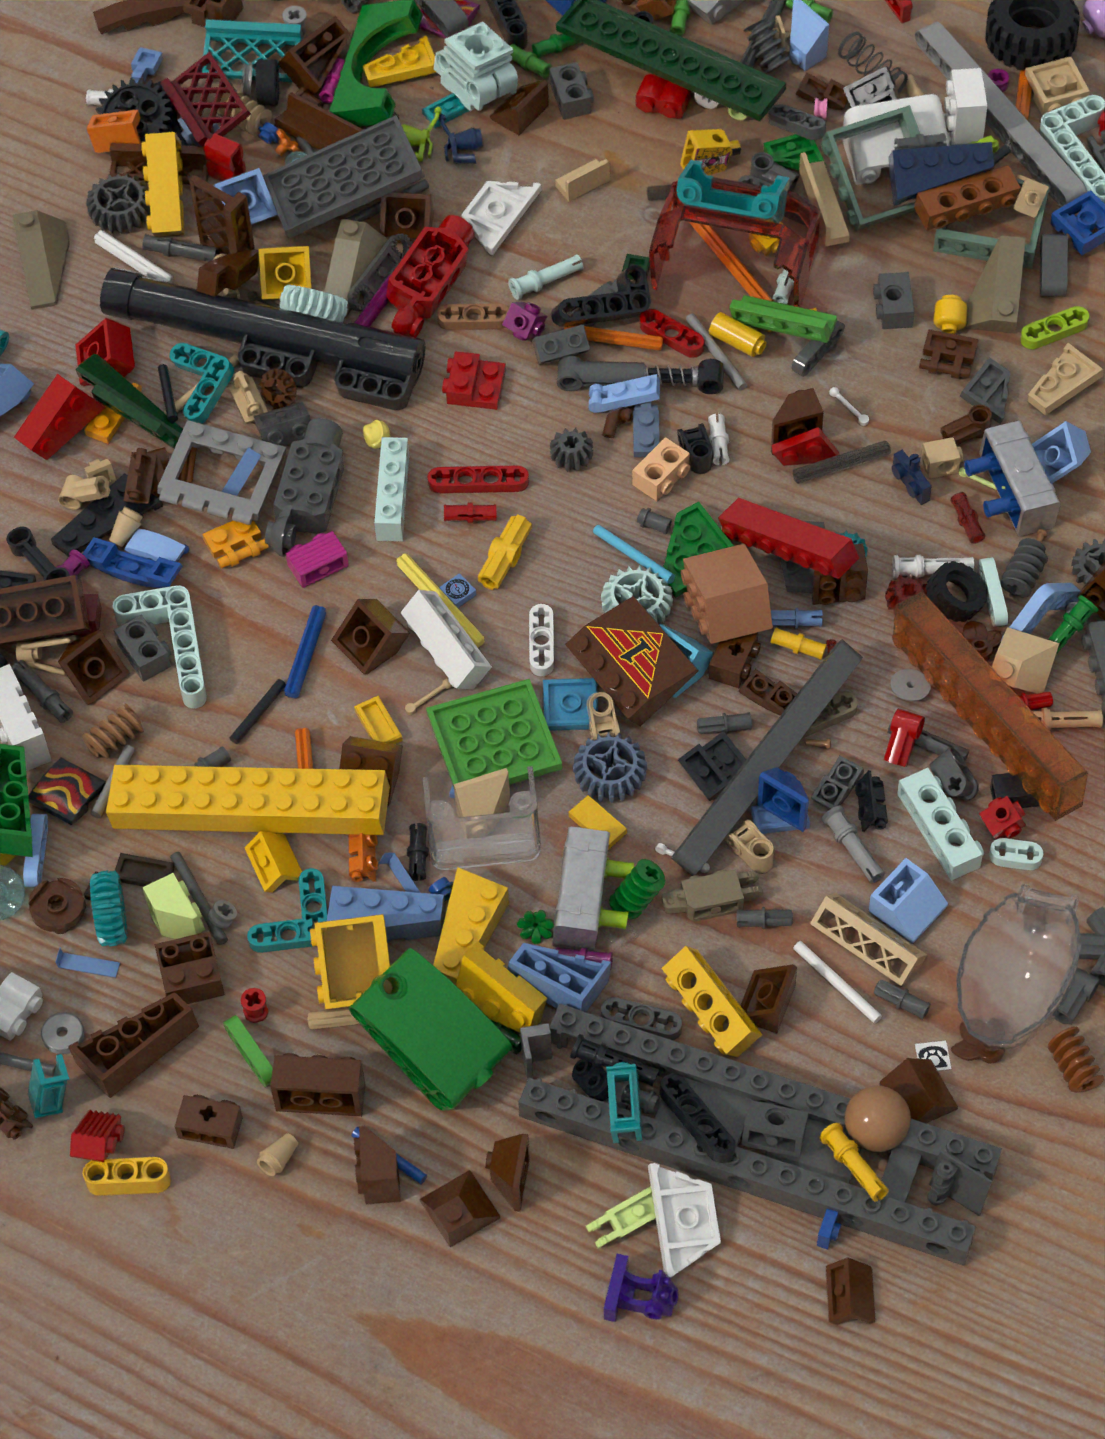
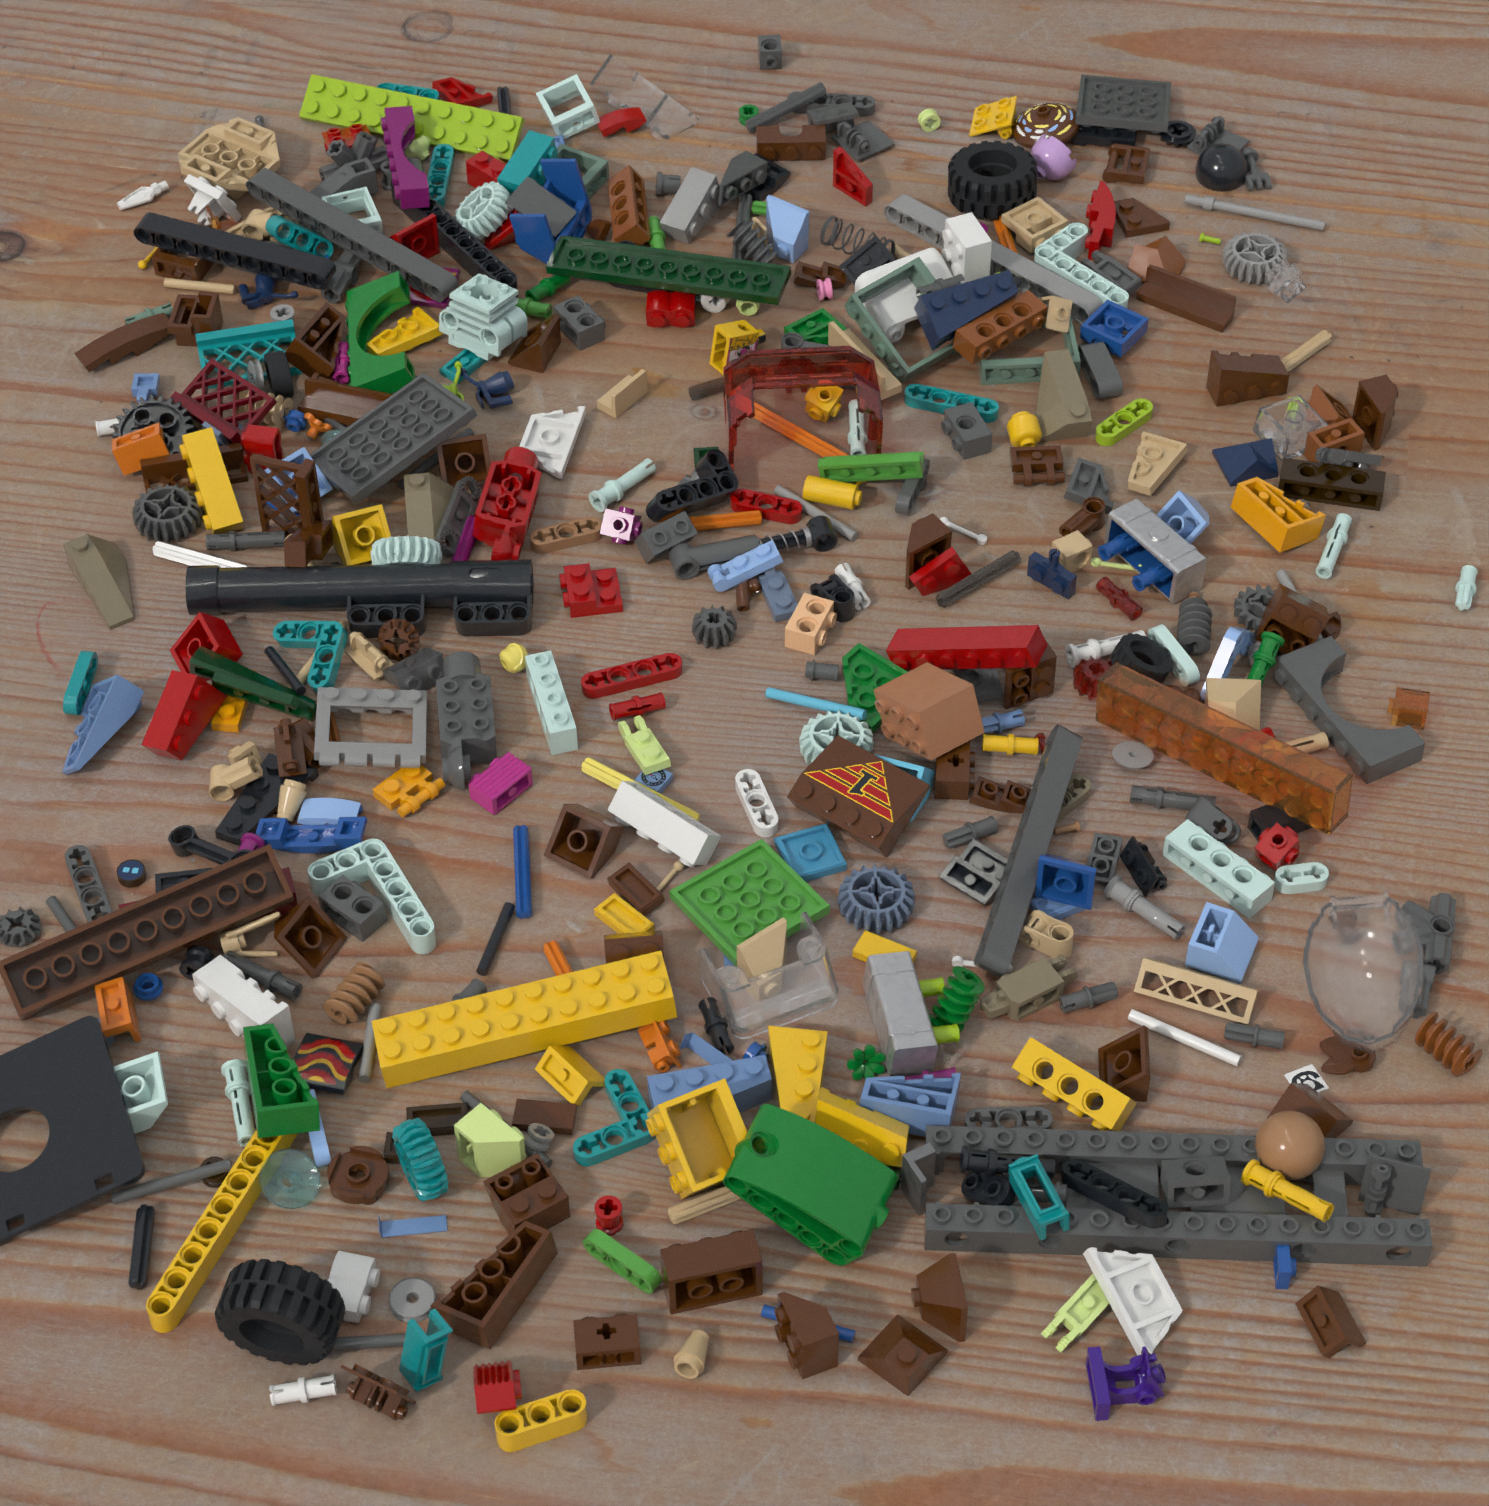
camera: 20 degrees left, 10 degrees down
(241, 472) = (392, 721): medium blue piece -> none
(241, 895) = (555, 1115): none -> reddish brown tile
(399, 697) = (635, 889): none -> reddish brown tile
(460, 557) = (644, 746): none -> yellowish green hinge
(504, 552) = (687, 732): yellow piece -> none
(602, 720) = (853, 856): tan piece -> none
(696, 191) = (831, 359): teal windscreen -> none
(797, 122) = (809, 303): dark grey beam -> none
(896, 262) = (916, 395): none -> teal beam
(905, 730) = (1151, 791): red piece -> none

